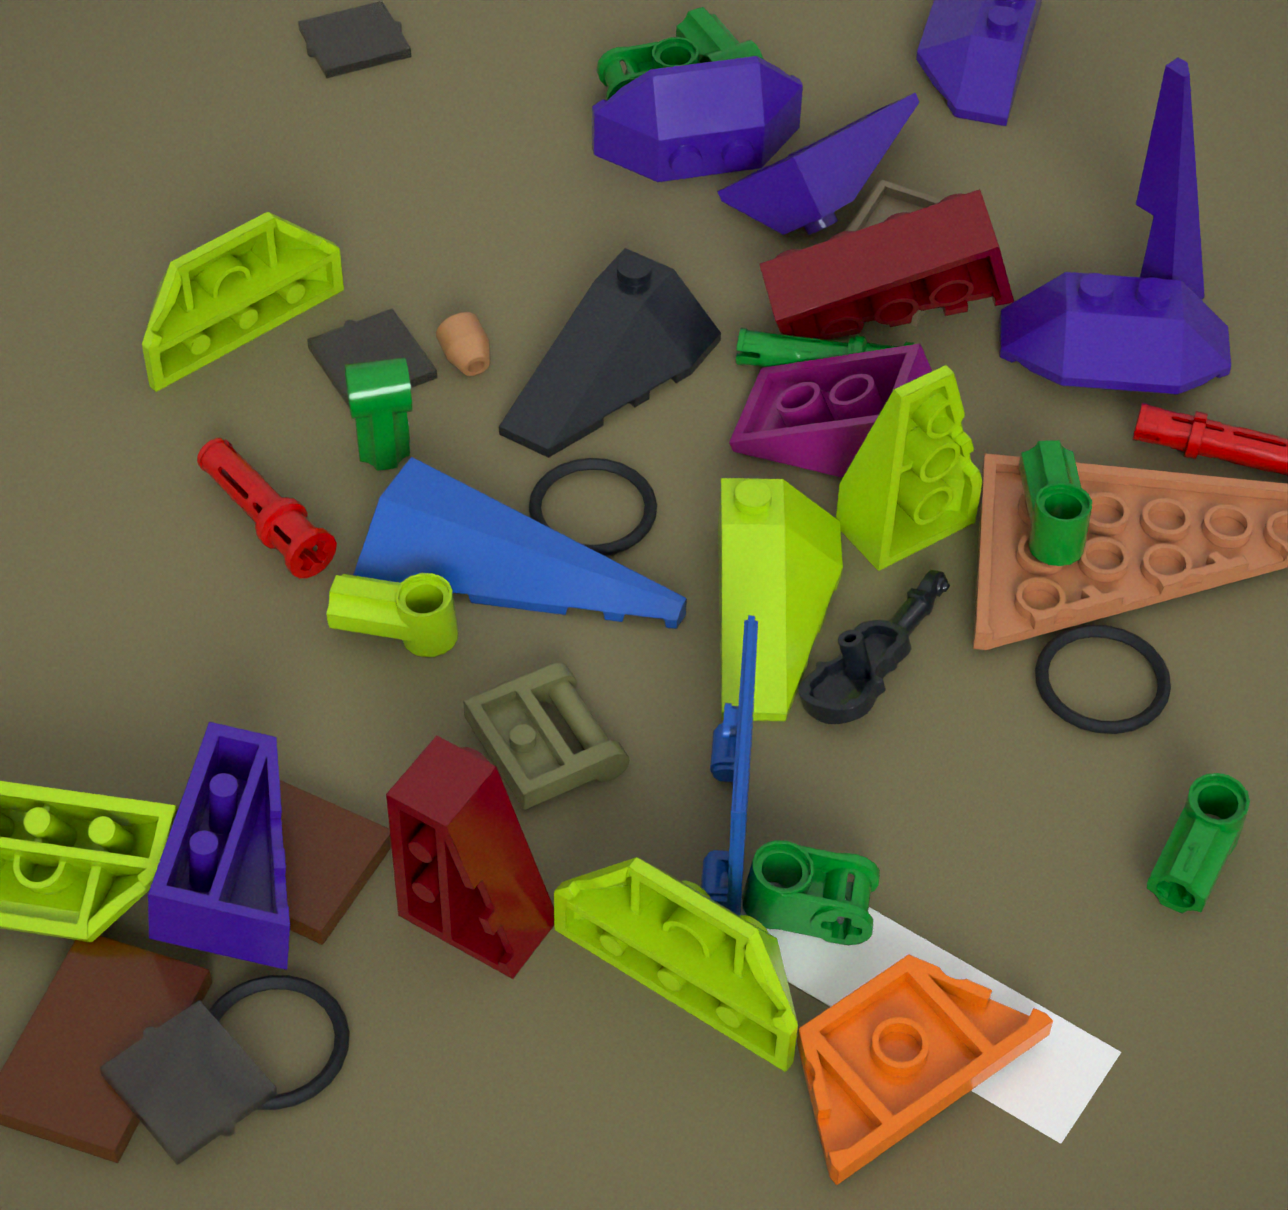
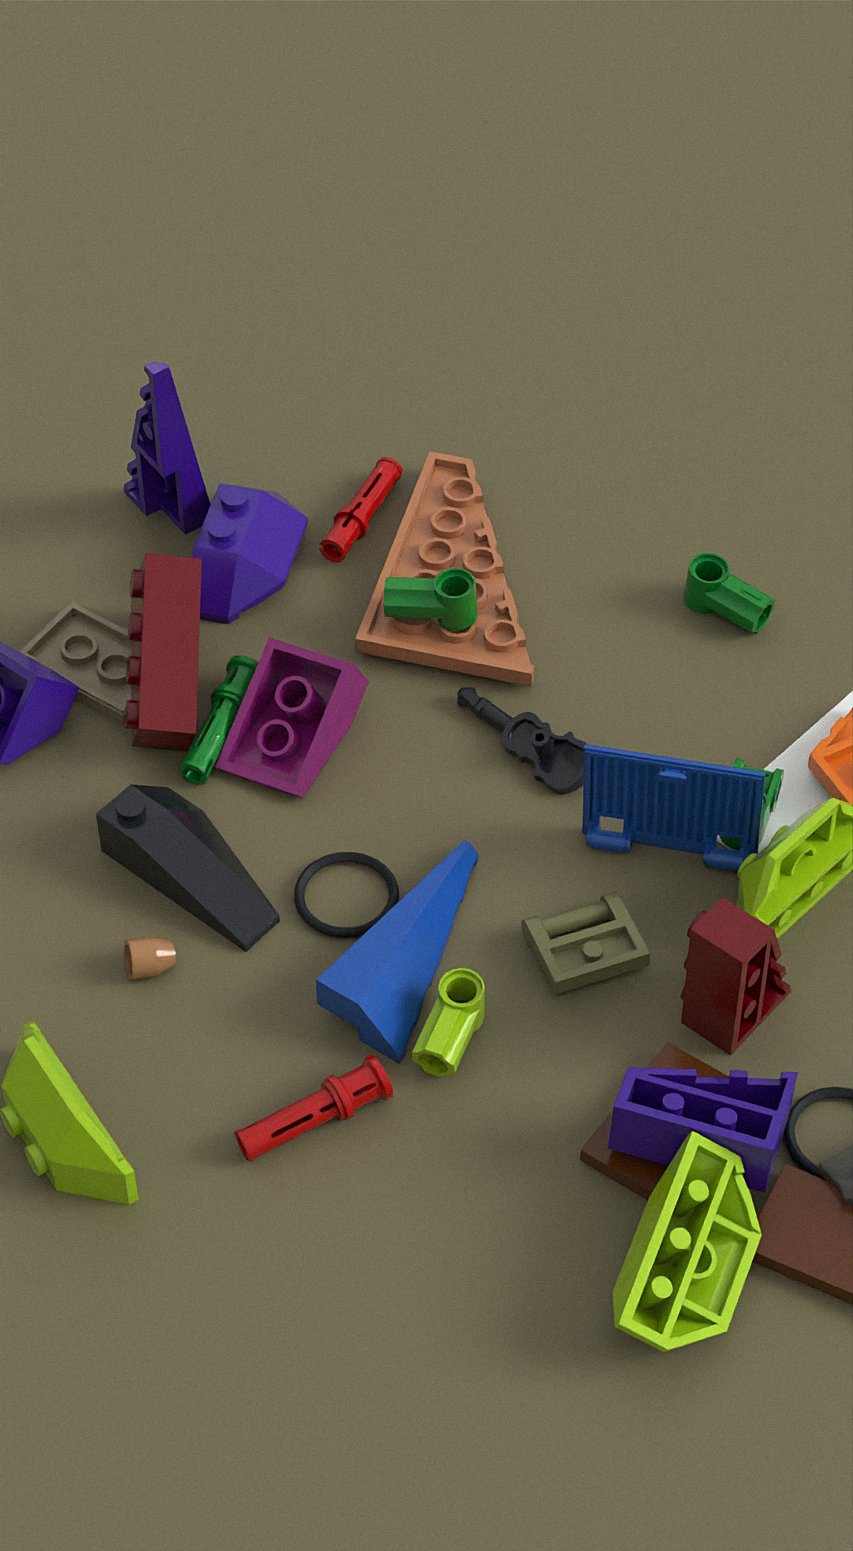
camera: 80 degrees left, 0 degrees up
(367, 340) = (138, 1032): clear smoke piece -> none
(379, 404) = (245, 1001): green piece -> none
(782, 567) = (456, 793): lime wedge -> none
(911, 473) = (407, 672): lime wedge -> none
(1090, 724) = (568, 655): black tyre -> none

